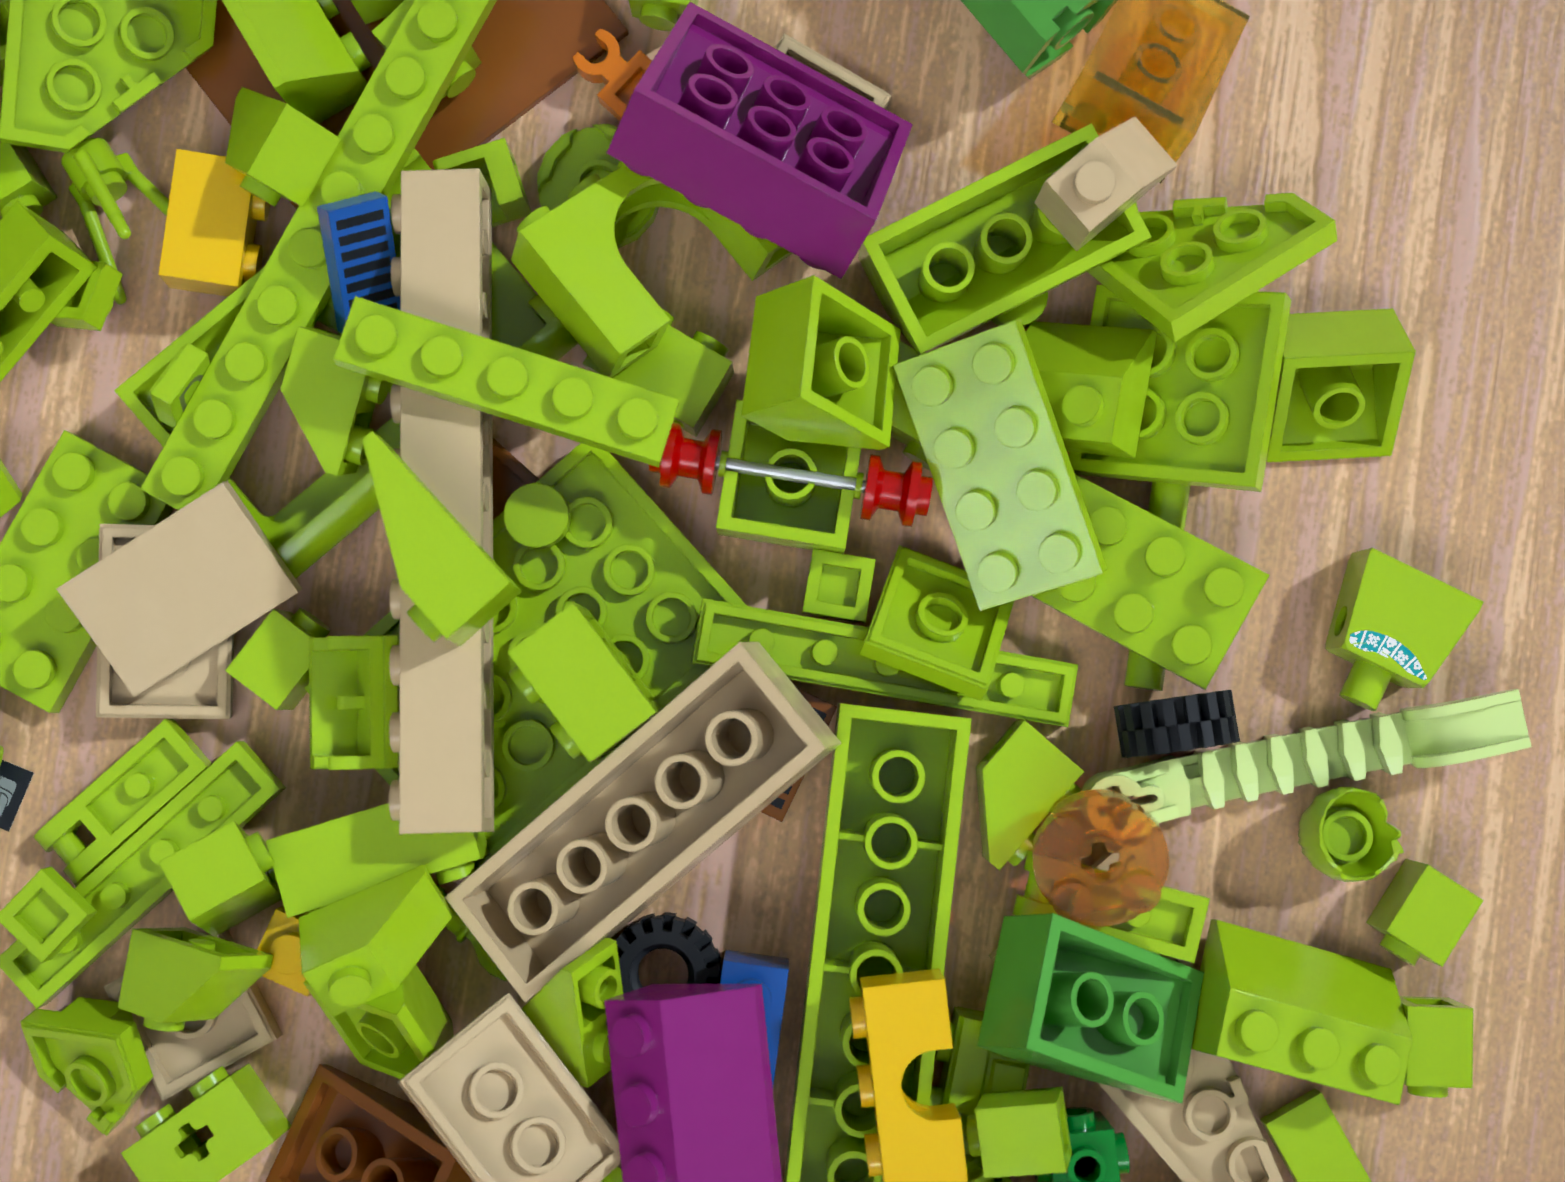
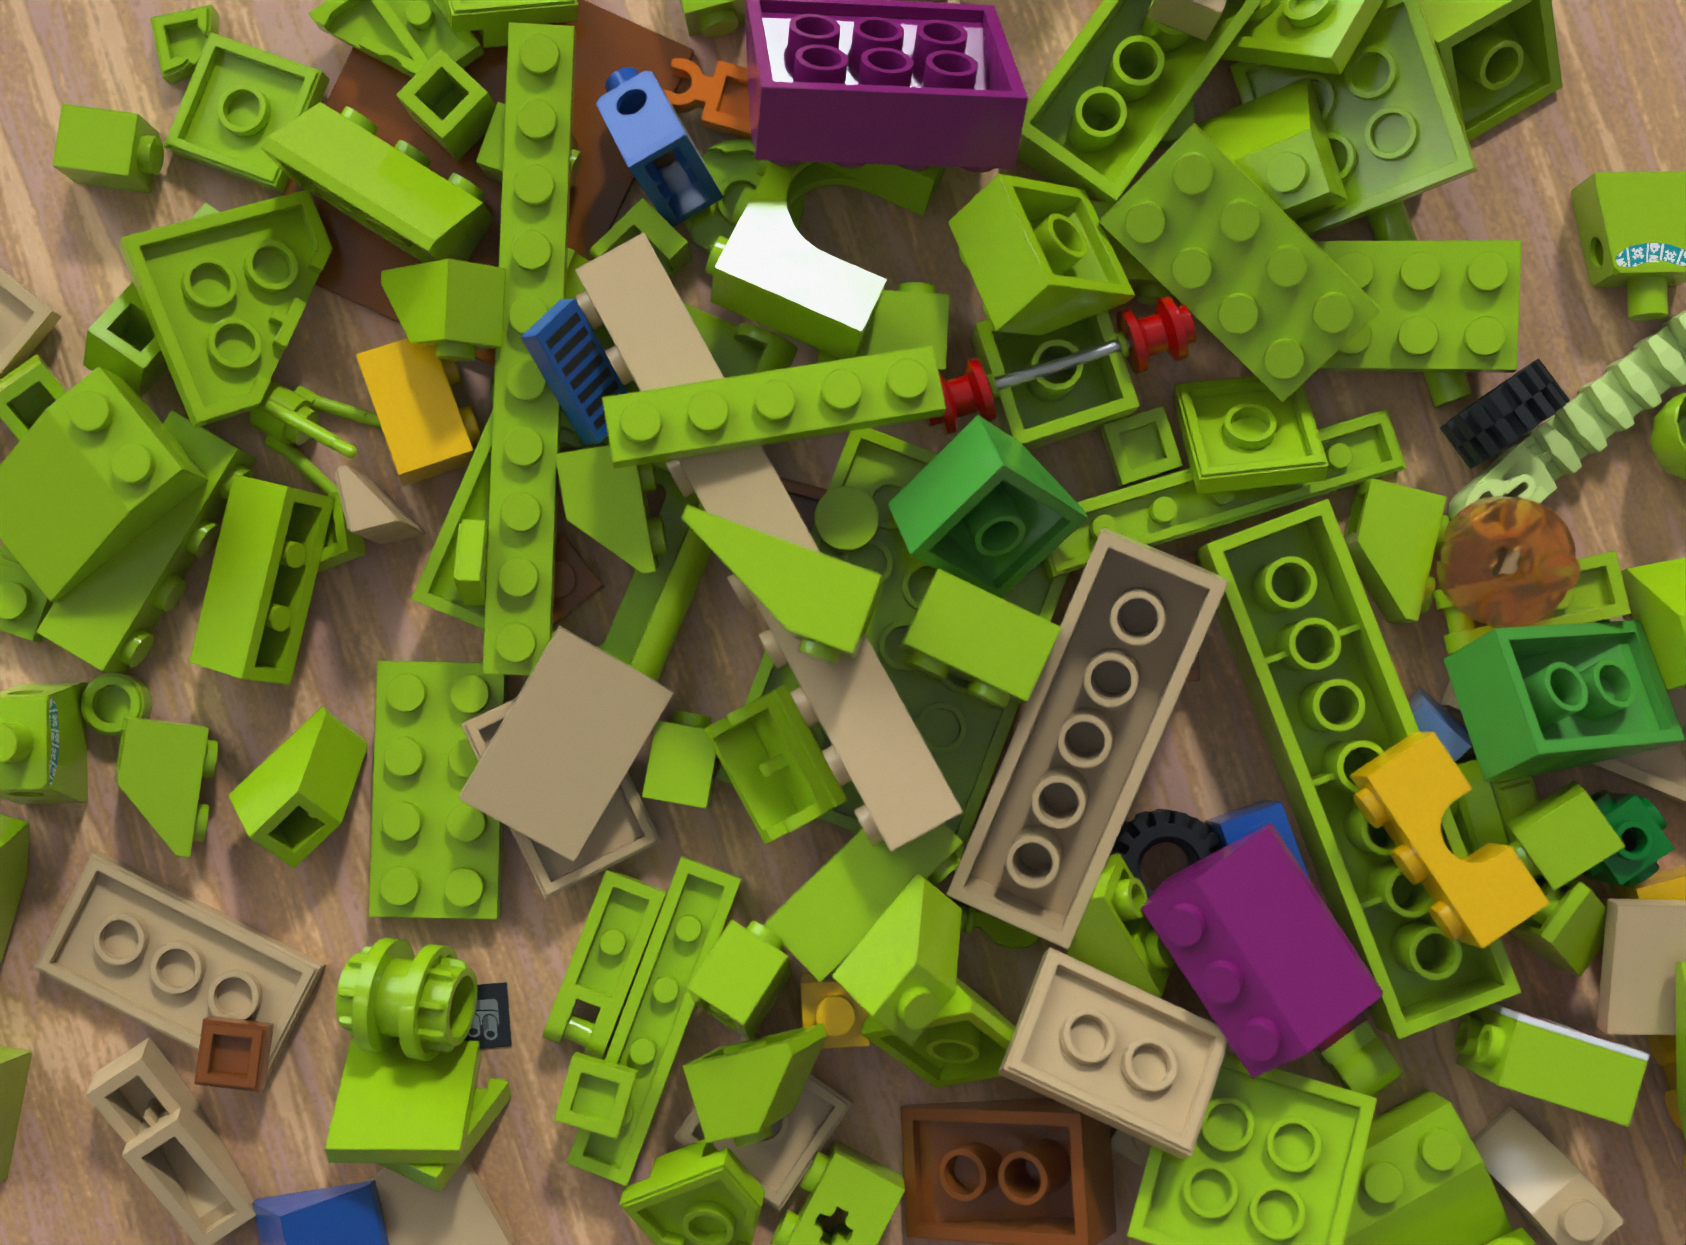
camera: 30 degrees left, 0 degrees up
(122, 292) = (372, 511): none -> tan slope
(272, 447) = (573, 581): none -> dark orange plate
(534, 71) = (647, 128): none -> blue torso
(655, 572) = (985, 510): none -> bright green slope
(970, 970) = (1435, 718): none -> medium blue tile

